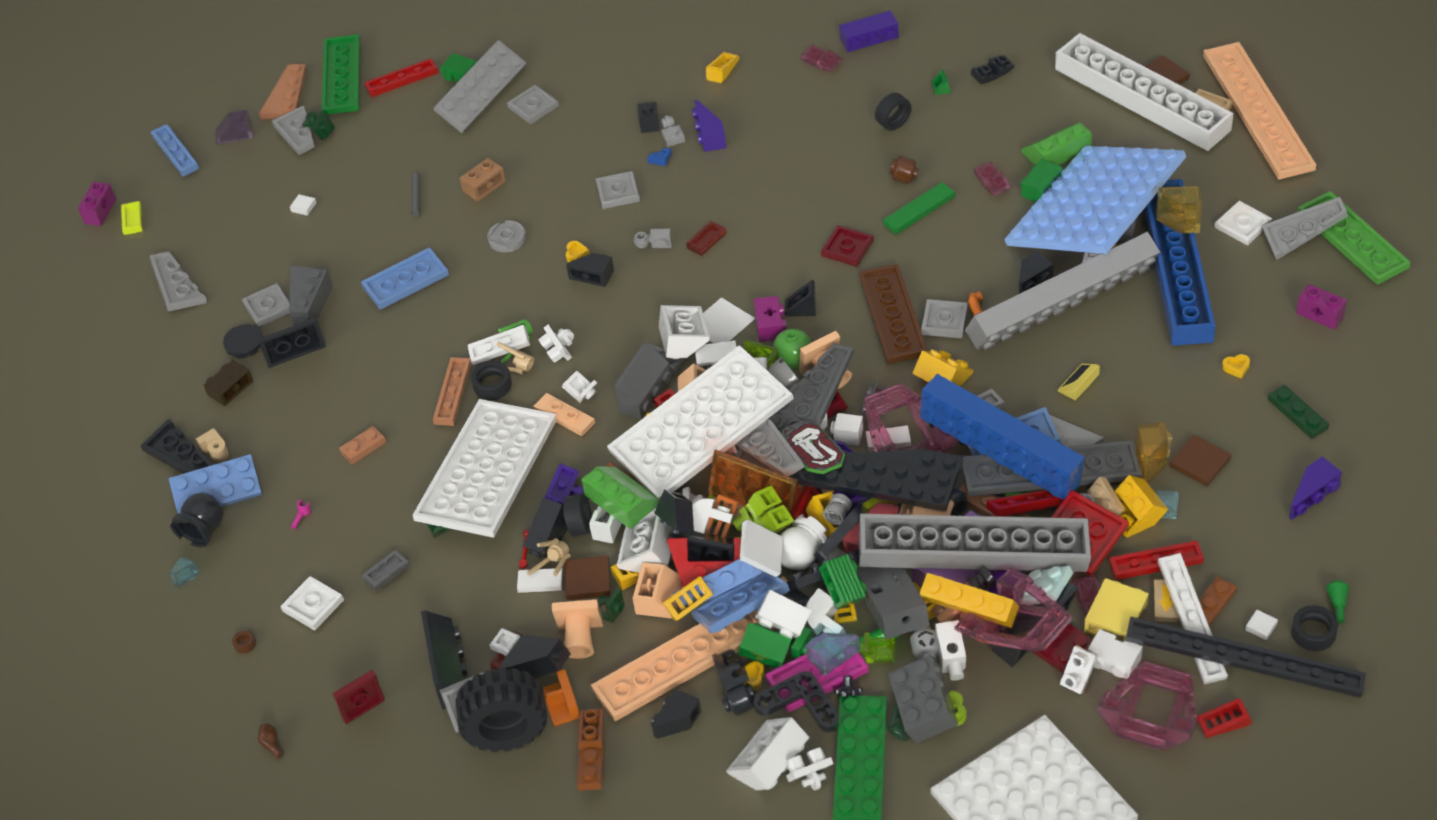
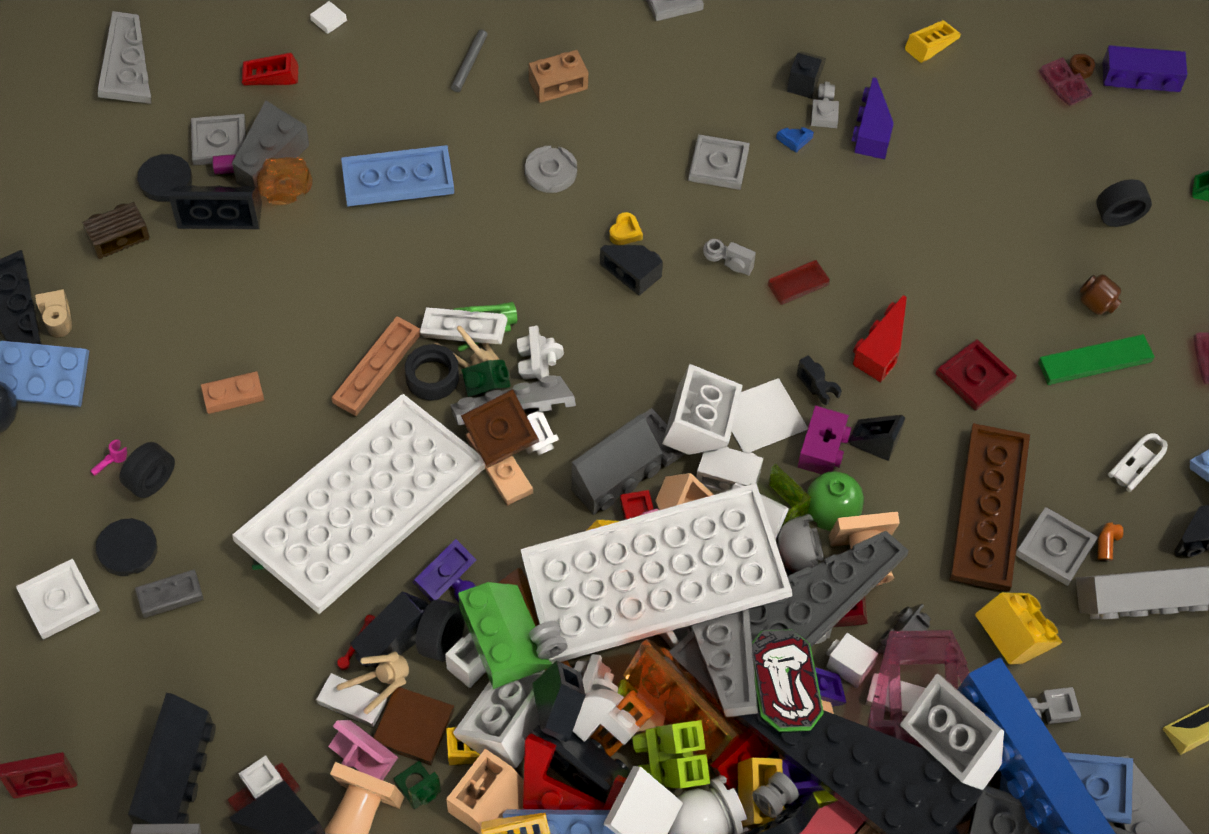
camera: 15 degrees right, 10 degrees up
(281, 316) = (223, 164): none -> magenta hinge
(286, 247) = (286, 72): none -> red slope
(324, 301) = (288, 168): none -> clear orange plate
(332, 506) = (147, 469): none -> black tyre
(341, 557) = (126, 547): none -> black tile
(529, 368) = (486, 377): none -> dark green bracket
(555, 374) = (539, 395): none -> light grey wing
(555, 390) = (500, 428): none -> reddish brown tile
(555, 595) = (361, 750): none -> bright pink panel
(652, 483) = (548, 640): none -> light grey wheel
(744, 287) = (813, 378): none -> black plate
(779, 253) = (882, 347): none -> red slope
(828, 43) = (1082, 64): none -> reddish brown tile
(931, 429) = (956, 733): none -> white slope
(974, 250) = (1143, 458): none -> white piece

